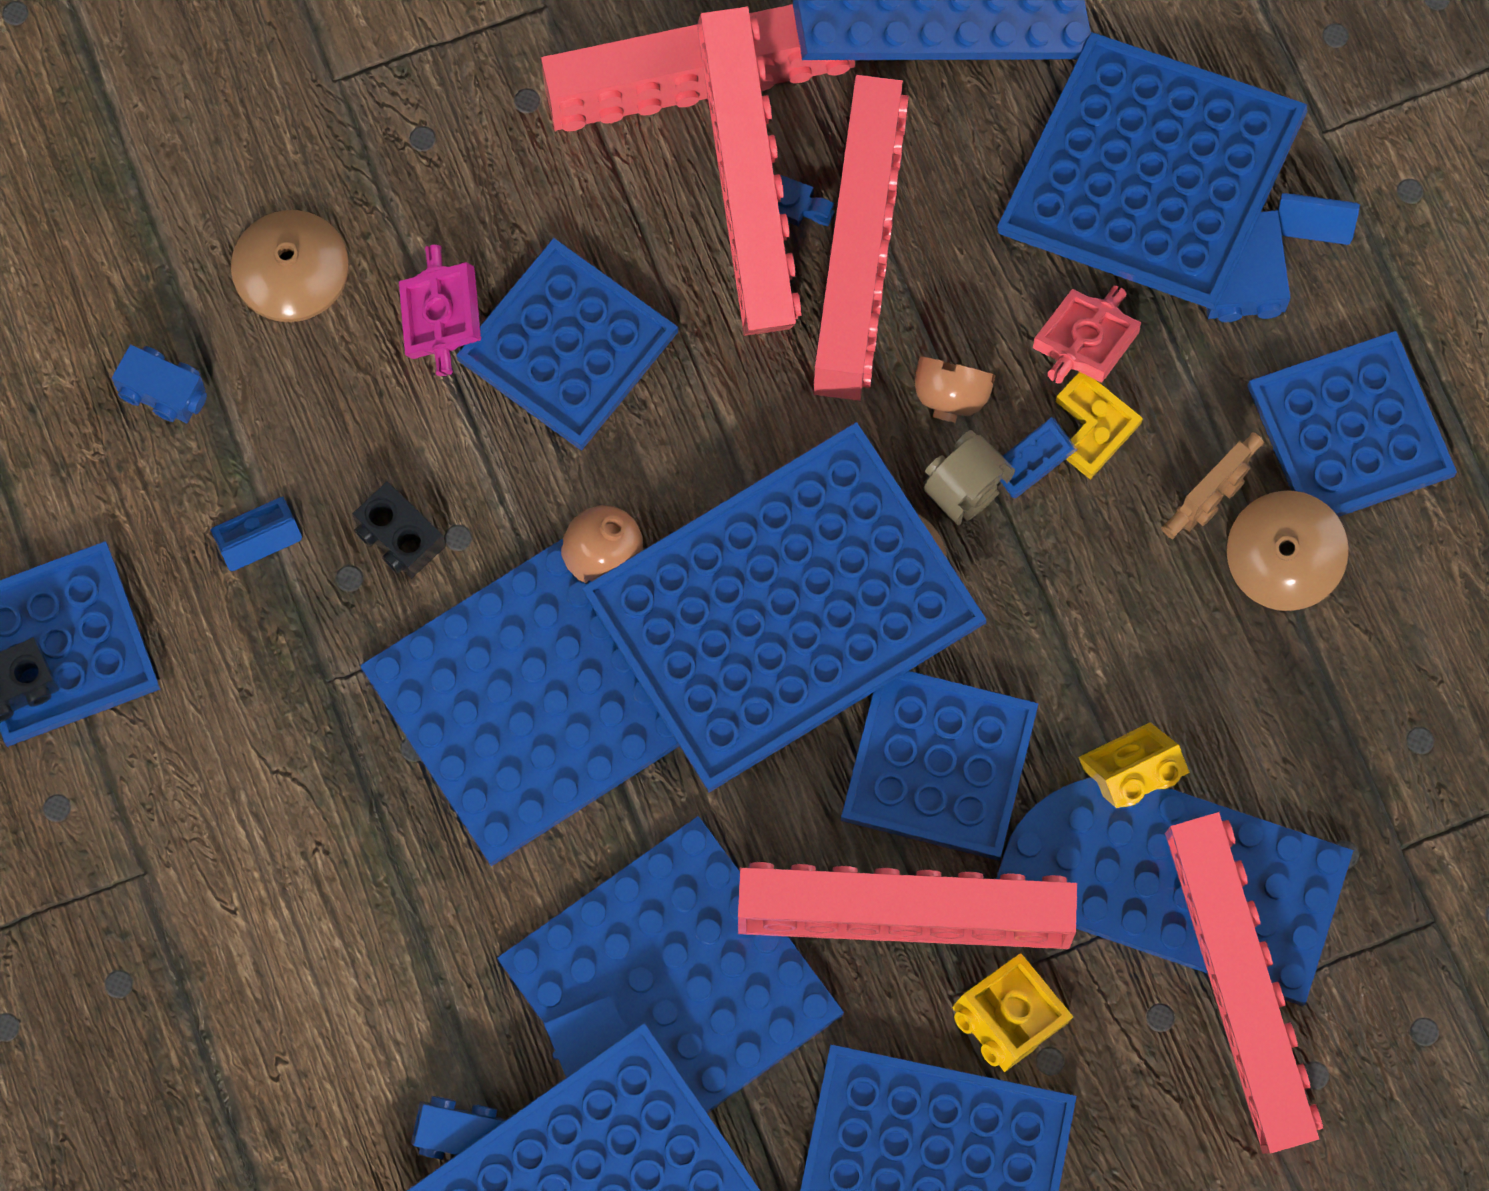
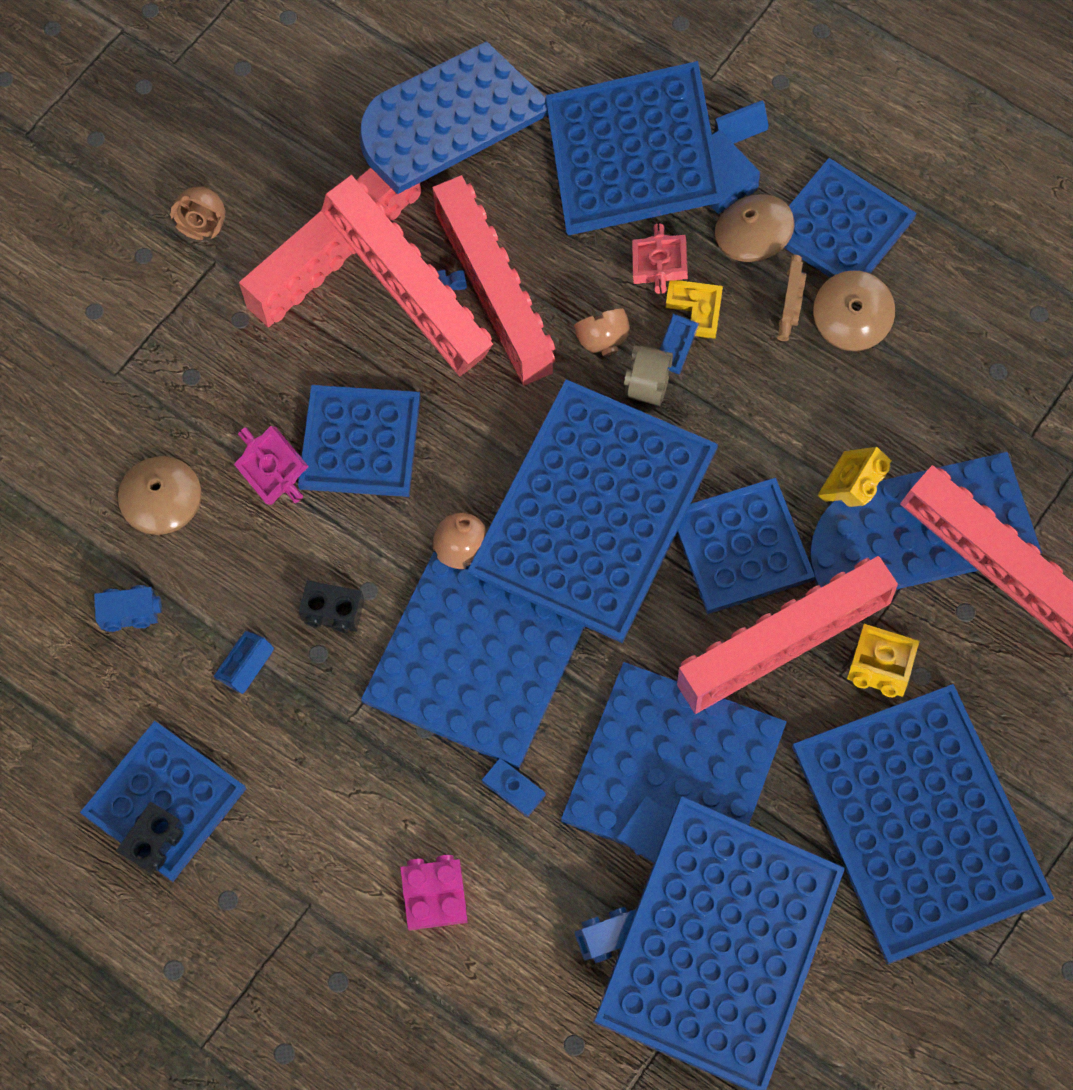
camera: 30 degrees left, 5 degrees down
(292, 950) = (433, 893): none -> dark pink plate
(468, 885) = (513, 787): none -> blue plate
(1241, 380) = (754, 228): none -> medium nougat dish

